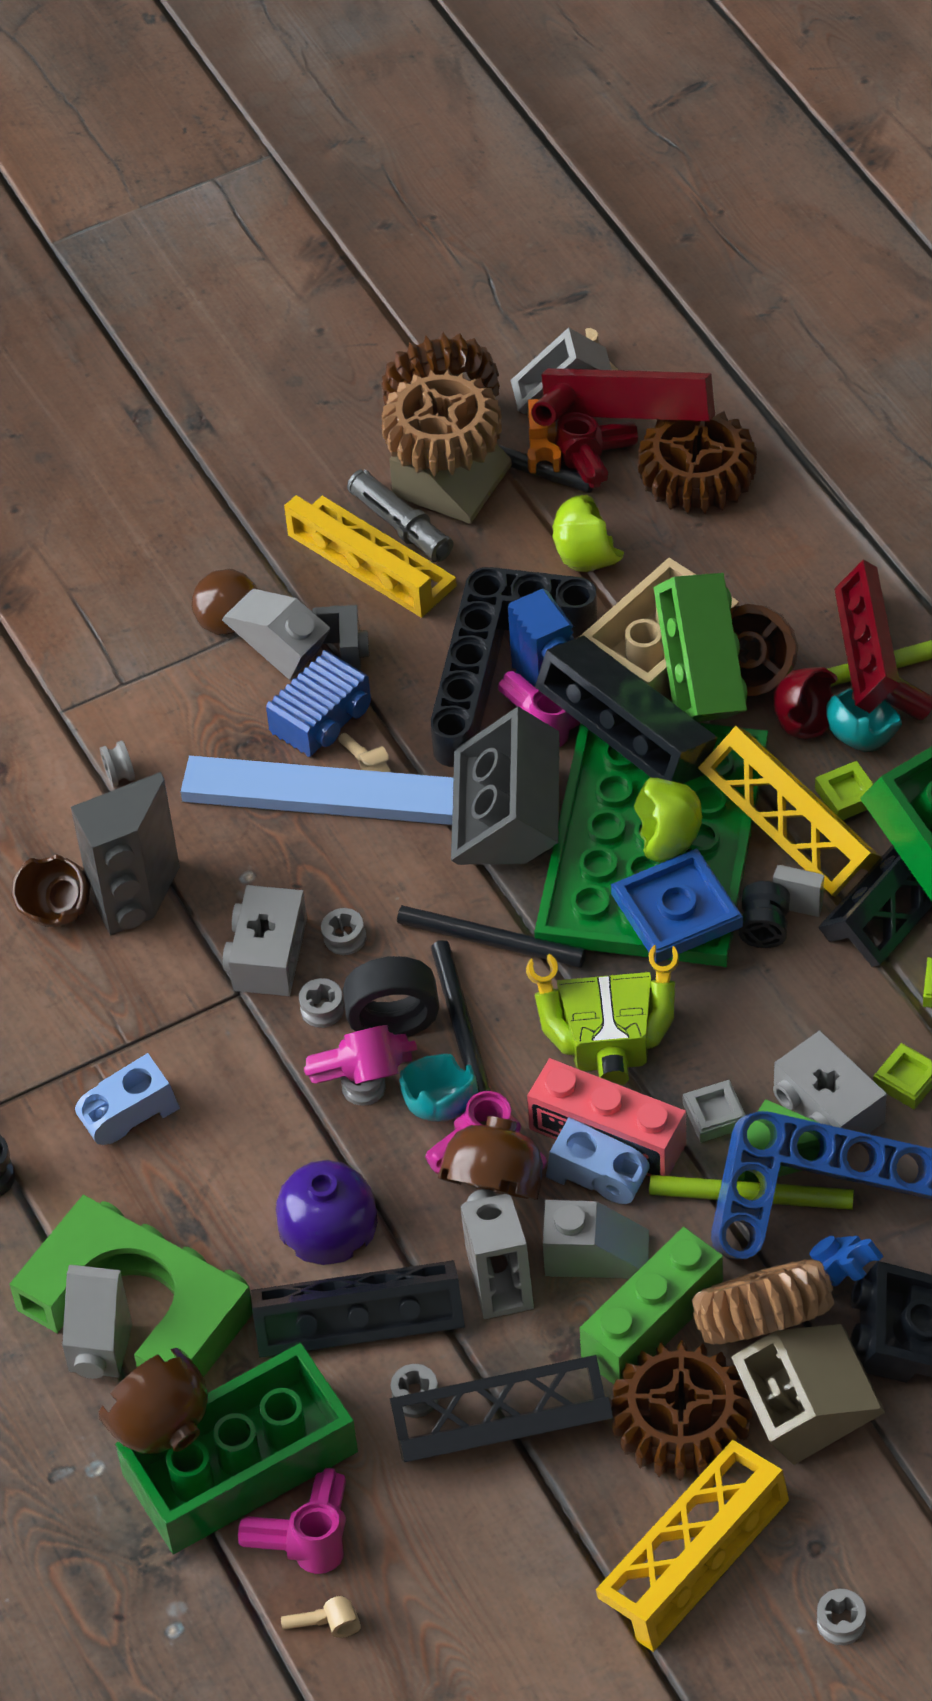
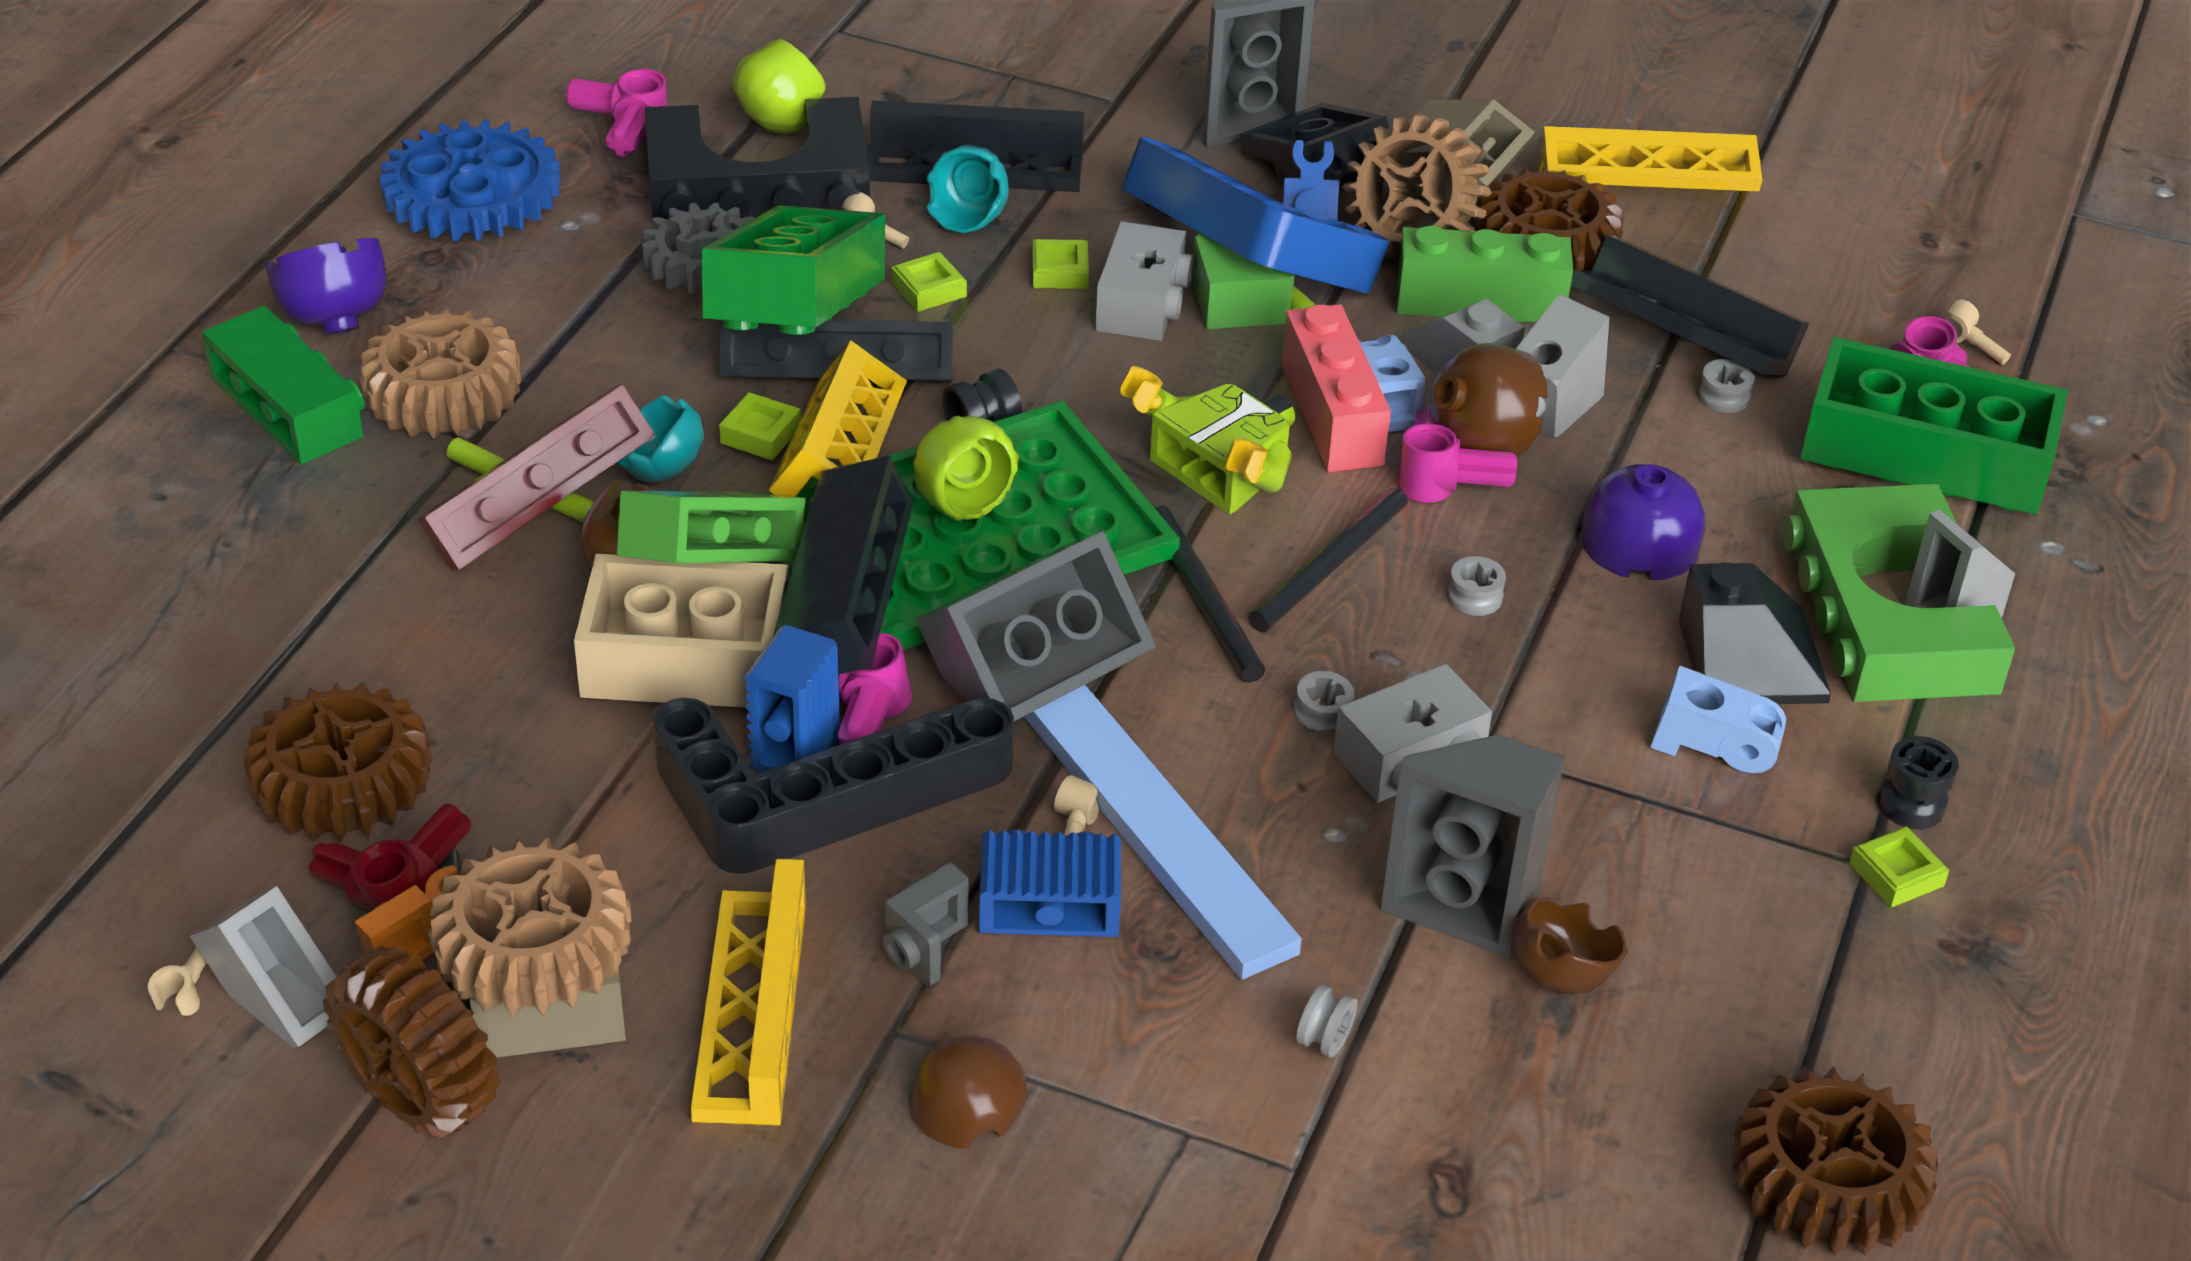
camera: 135 degrees left, 10 degrees down
(158, 1405) = (2013, 402): reddish brown cylinder -> none
(178, 1184) = (1750, 634): none -> slope
(278, 629) = (986, 965): light grey slope -> none
(312, 994) = (1424, 654): light grey bush -> none
(357, 1308) = (1709, 437): black fence -> none
(361, 1057) = (1452, 552): dark pink axle -> none
(391, 977) = (1409, 558): black tyre -> none
(411, 524) = (671, 977): dark grey pin -> none
(437, 1087) = (1435, 502): teal hair -> none
(582, 536) = (568, 780): lime hair -> none
(625, 395) = (321, 894): dark red piece -> none
(677, 905) = (1061, 433): blue plate -> none
(713, 1110) = (1231, 354): light grey tile -> none
(802, 701) = (675, 468): dark red hair -> none
(804, 887) = (927, 393): light grey tile -> none
(838, 1601) = (1598, 94): light grey bush -> none

